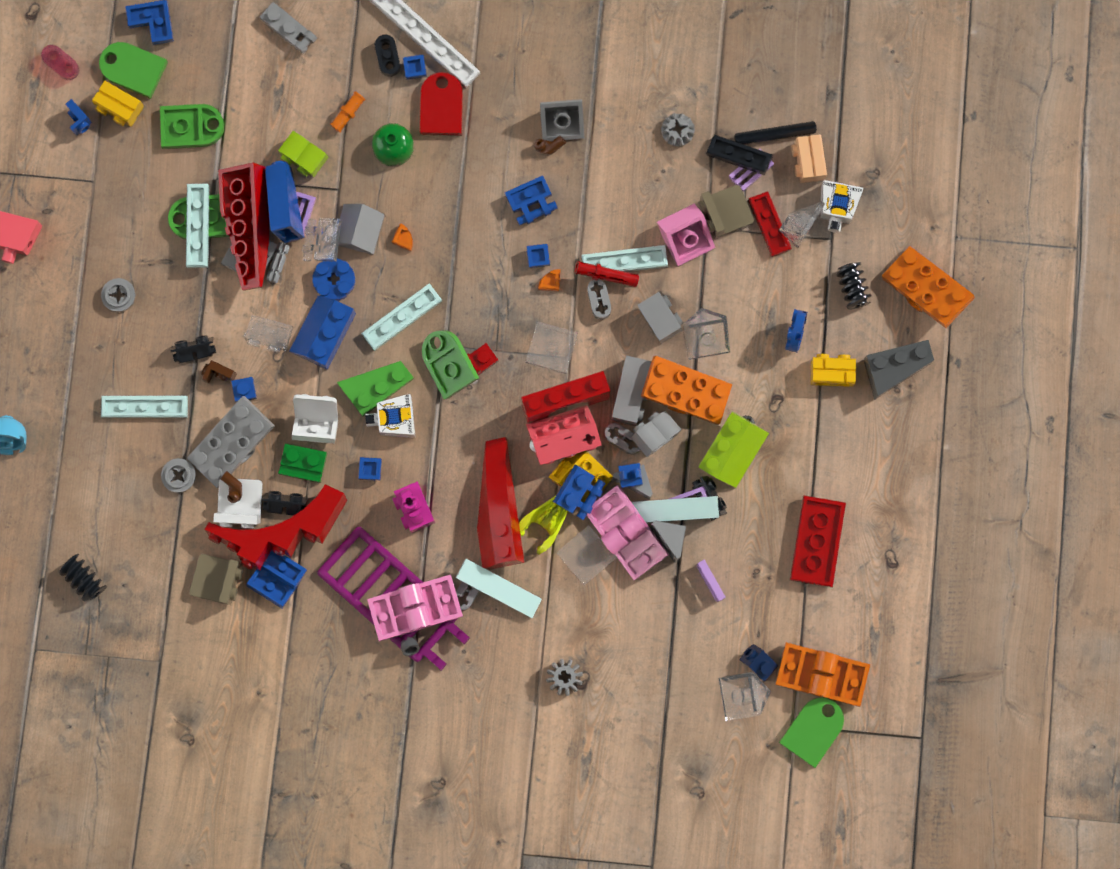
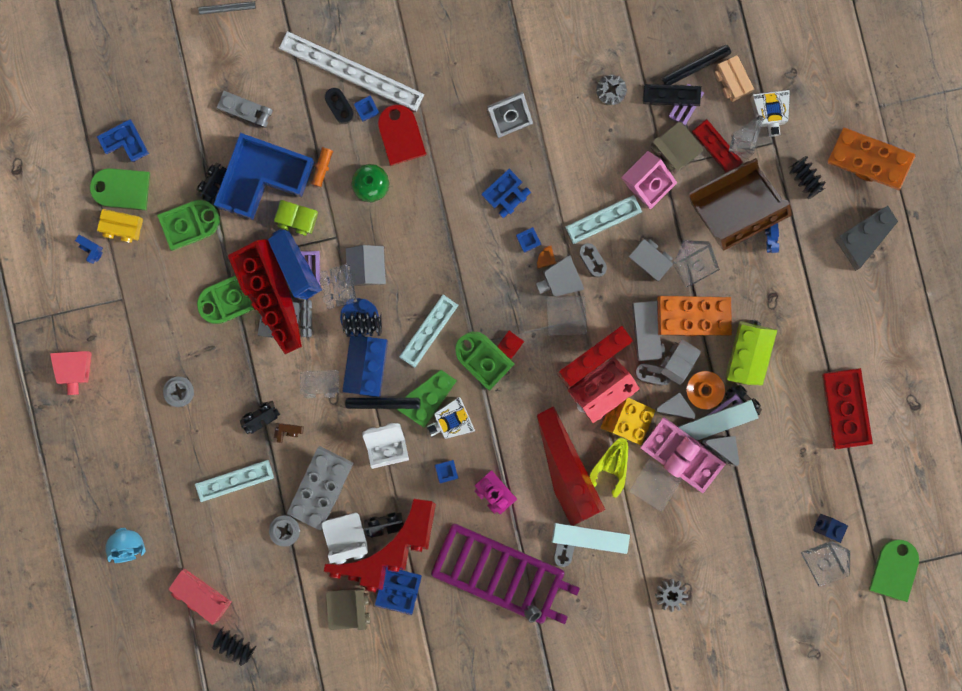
camera: 15 degrees left, 5 degrees up
(61, 62) = (57, 205): clear pink plate -> none
(65, 514) = (199, 596): none -> coral wedge
(197, 226) = (226, 309): light aqua tile -> none
(234, 85) = (207, 187): none -> black hinge
(235, 487) = (337, 527): reddish brown arm -> none
(244, 387) = (315, 438): blue plate -> none
(277, 89) = (254, 167): none -> blue piece
(302, 463) = (387, 485): green plate -> none
(327, 375) = (382, 403): none -> black axle
(333, 285) = (361, 324): none -> black piece
(403, 238) = (406, 261): orange tile -> none
(415, 607) = (526, 579): bright pink plate -> none
(549, 147) = (505, 141): reddish brown arm -> none
(558, 306) = (561, 278): none -> light grey torso
(574, 489) = (628, 433): blue plate -> none
(598, 272) = (592, 237): red pin -> none
(630, 475) = (672, 406): blue tile -> none
(672, 461) = (715, 387): none -> orange dish
(710, 581) = (768, 473): lavender tile -> none
(771, 288) = (739, 204): none -> reddish brown panel
(822, 674) = (888, 521): orange plate -> none
(833, 371) = (813, 258): yellow brick -> none

